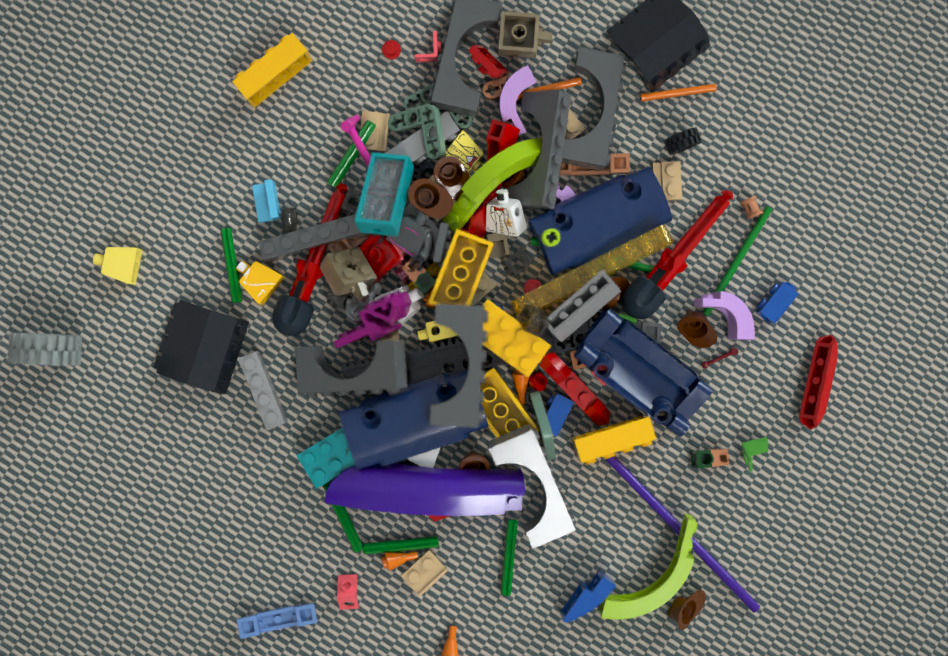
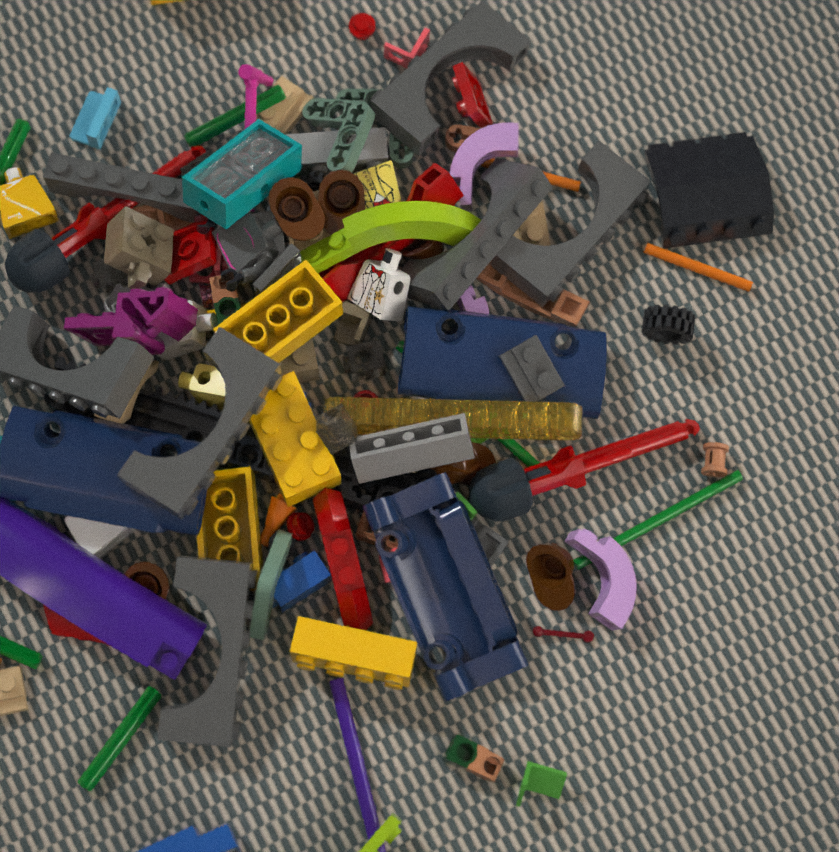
camera: 30 degrees right, 15 degrees down
(289, 219) = (109, 149): clear smoke cone -> none
(530, 38) = (533, 90): dark tan hinge -> none
(548, 232) = (419, 329): lime bush -> none
(623, 218) = (531, 370): none -> dark grey plate
(669, 178) = (624, 367): tan plate -> none
(777, 302) = (681, 601): blue brick -> none
(819, 381) = (681, 739): red brick -> none

